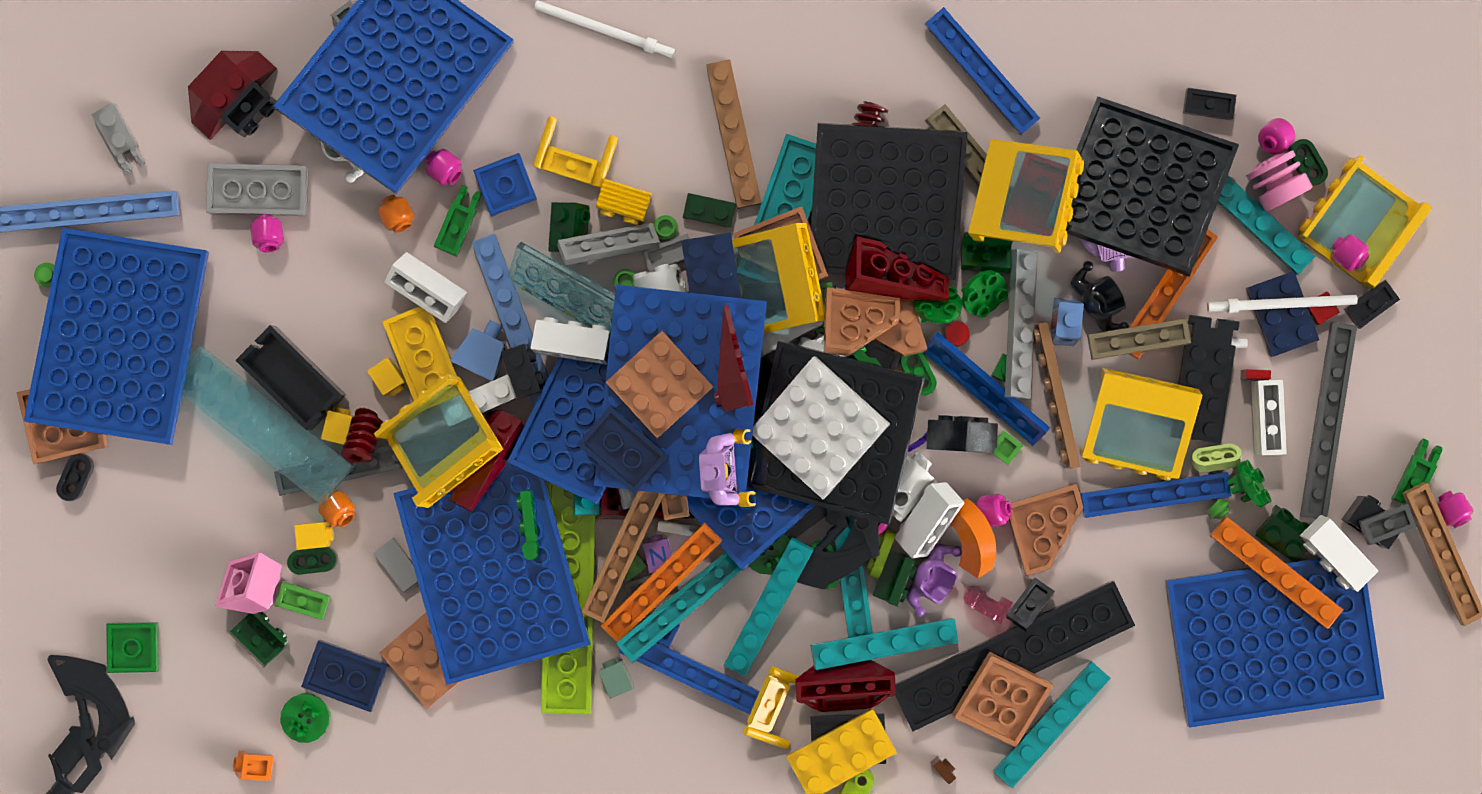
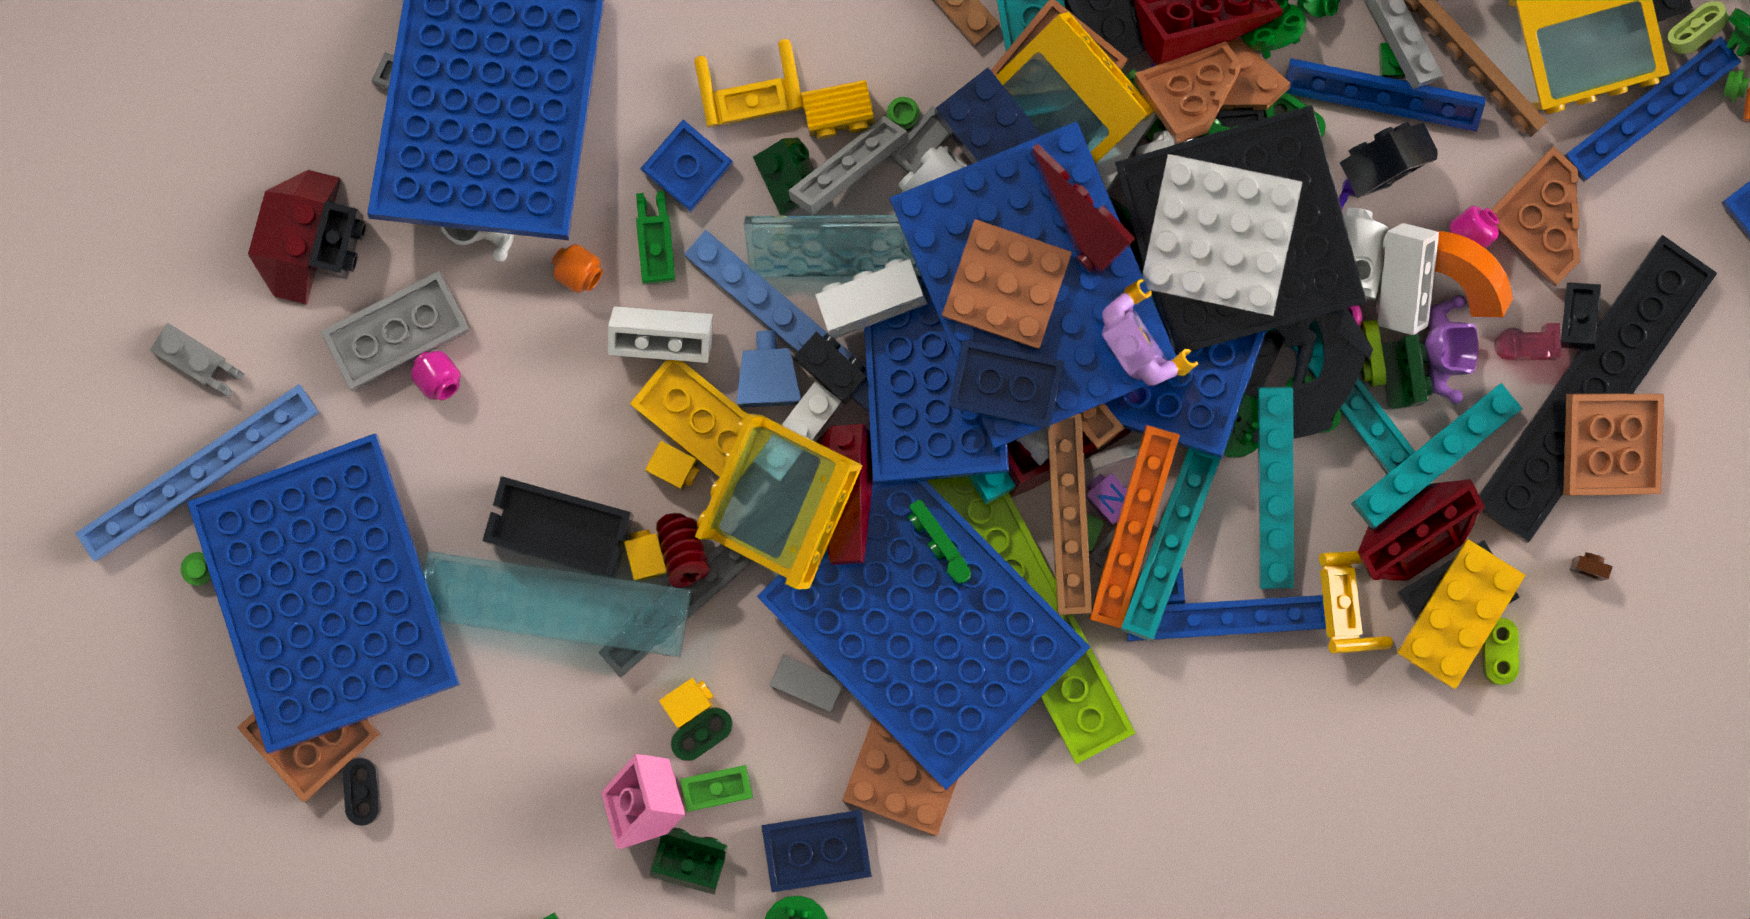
camera: 25 degrees left, 5 degrees down
(338, 509) = (699, 655): orange head -> none
(443, 167) = (603, 183): dark pink head -> none
(615, 677) = (1141, 673): sand green brick -> none
(624, 277) = (882, 199): bright green plate -> none
(709, 210) = (943, 66): dark green plate -> none
(957, 333) = (1314, 48): red tile -> none
(1007, 447) = (1450, 150): bright green plate -> none
(1051, 724) = (1686, 444): teal plate -> none

